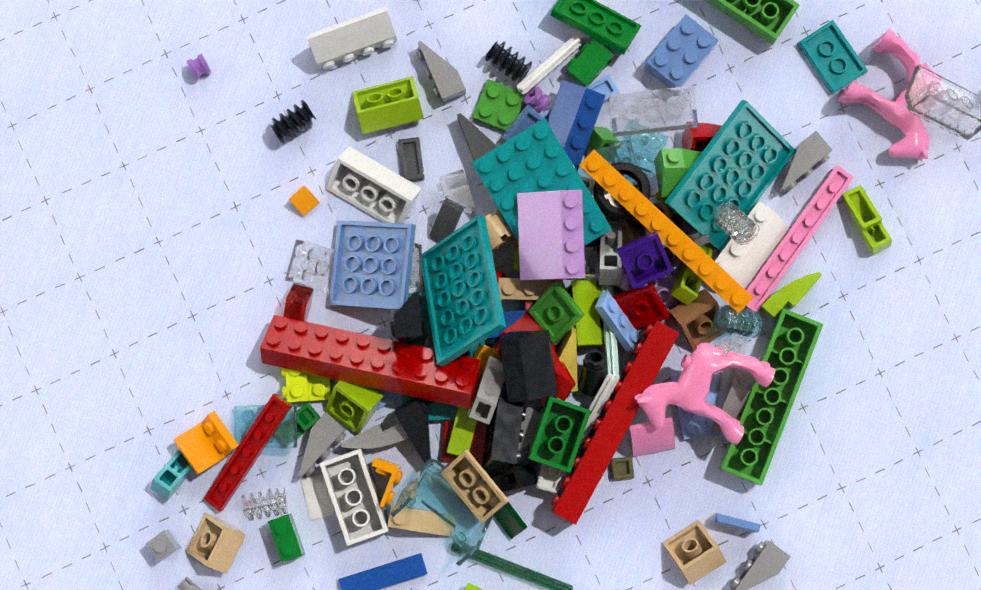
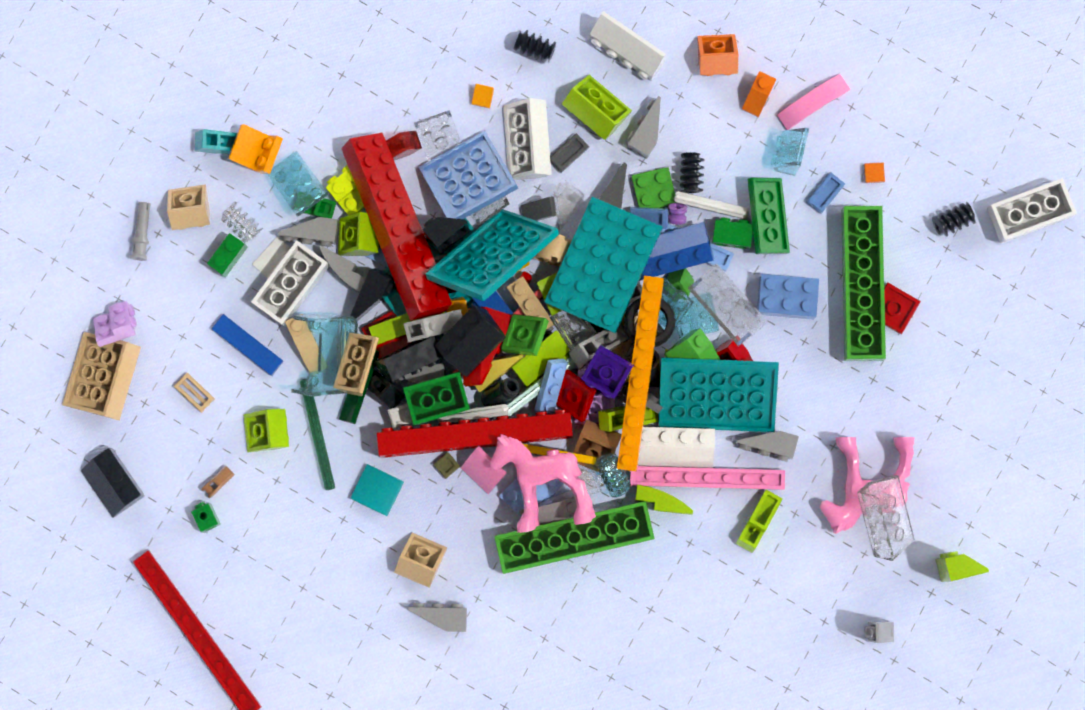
camera: 55 degrees right, 0 degrees up
(163, 545) = (161, 170): light grey brick -> none
(247, 452) = (269, 184): red tile -> none
(385, 467) = (326, 302): light orange bracket -> none
(551, 235) = (578, 291): lavender slope -> none
(601, 548) = (377, 490): none -> teal slope
(675, 366) = (543, 451): none -> yellow tile
(736, 223) = (684, 422): clear piece -> none
(737, 522) = (464, 576): medium blue tile -> none
(832, 57) = (867, 412): teal tile -> none

